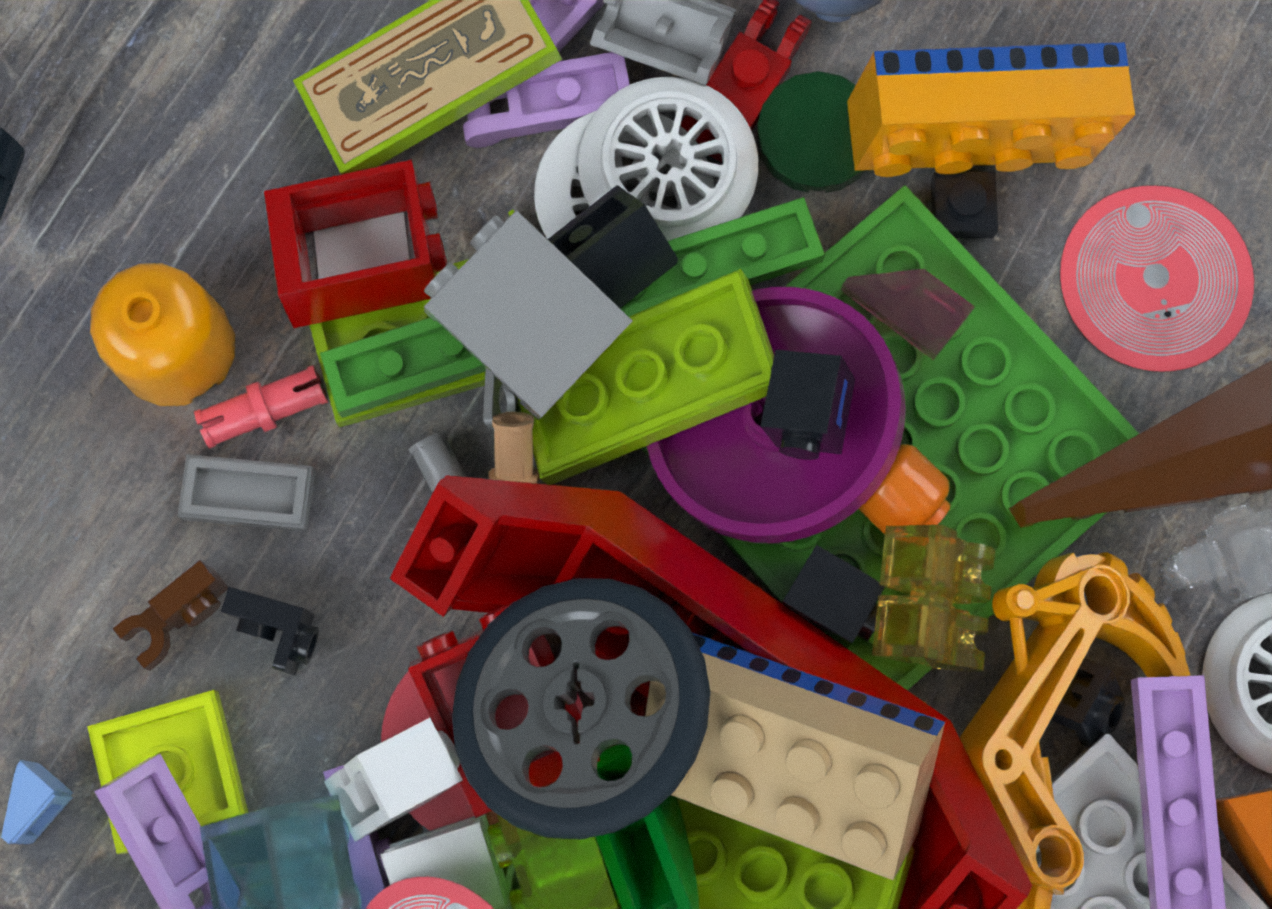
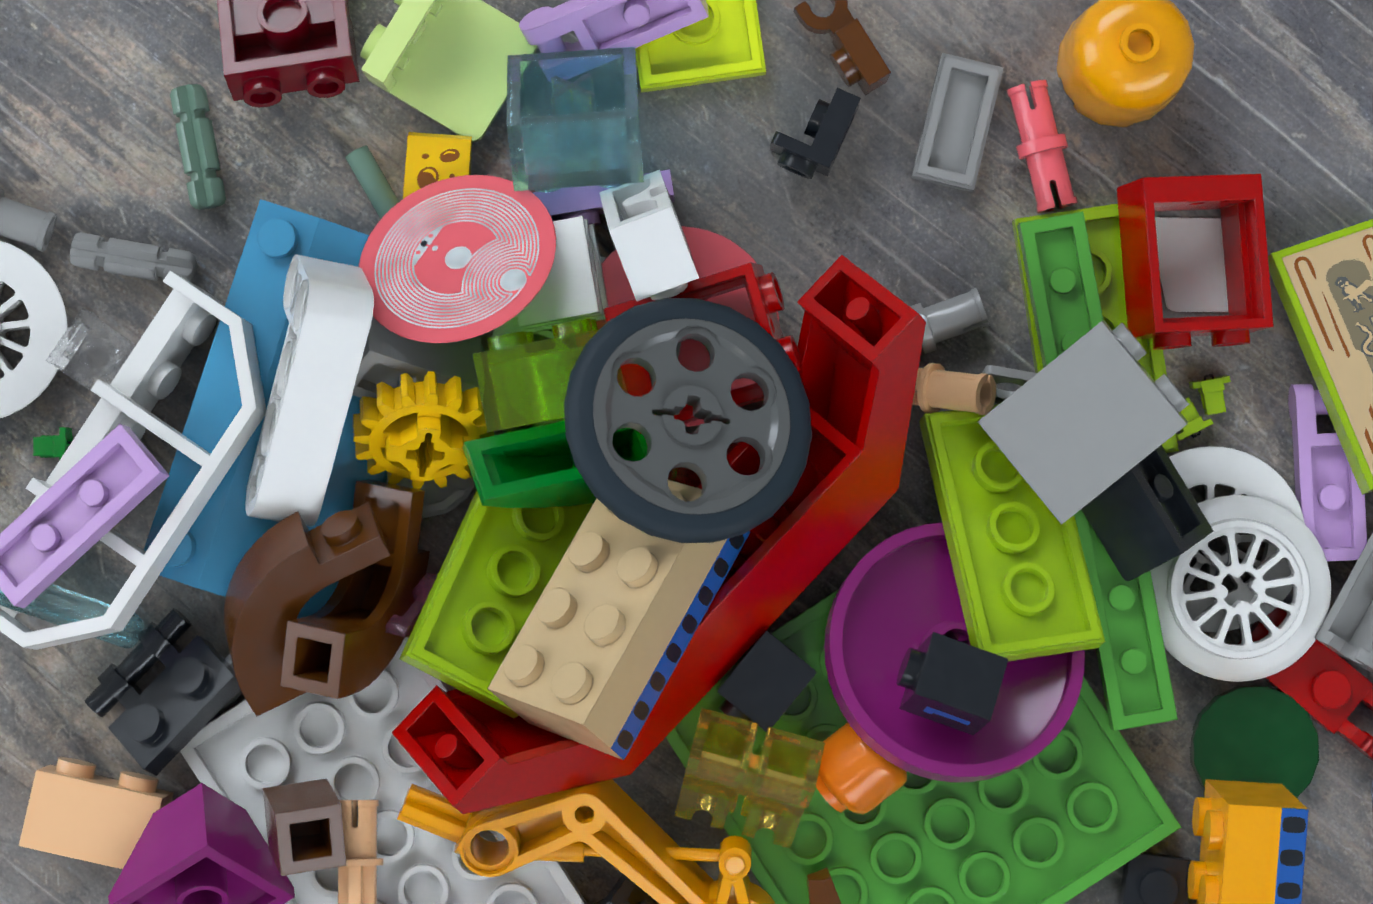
camera: 95 degrees right, 10 degrees up
(481, 214) = (1211, 393): none -> lime piece
(912, 305) = (1050, 812): clear pink tile -> none

